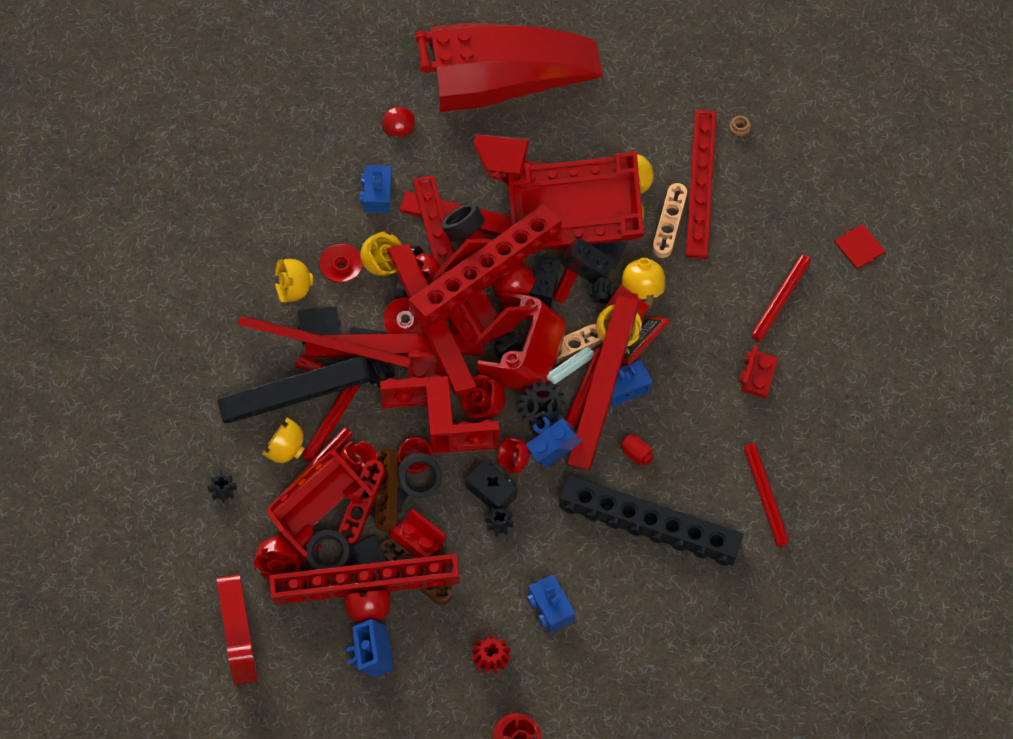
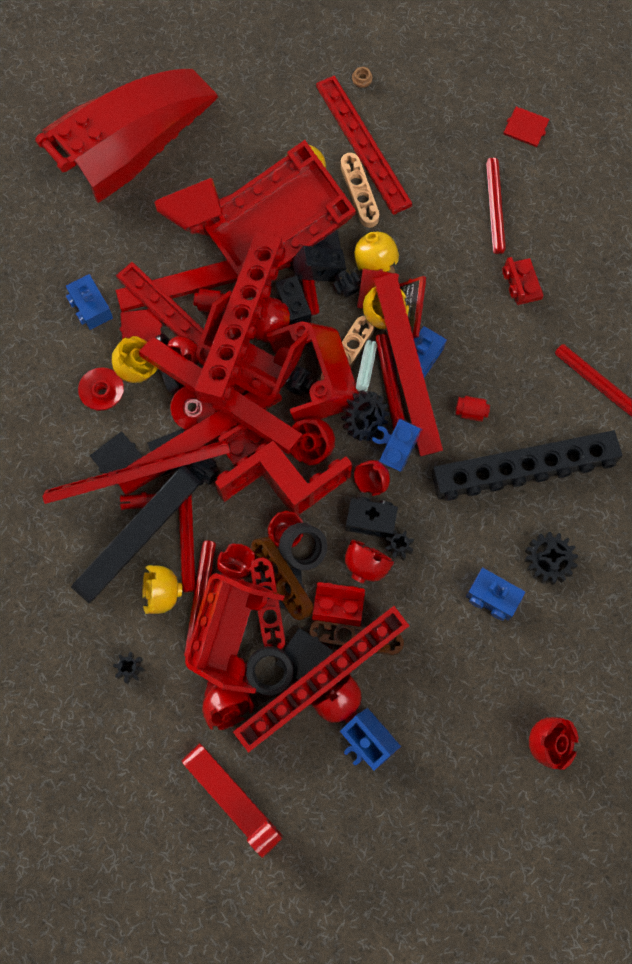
camera: 30 degrees left, 10 degrees up
(293, 280) = (68, 430): yellow cylinder -> none
(398, 122) = (67, 231): red hair -> none
(407, 230) = (140, 324): none -> red piece
(462, 517) = (366, 562): none -> red cylinder
(463, 222) = (188, 289): black tyre -> none
(497, 660) = (483, 680): red gear -> none
(612, 595) = (550, 547): none -> black gear

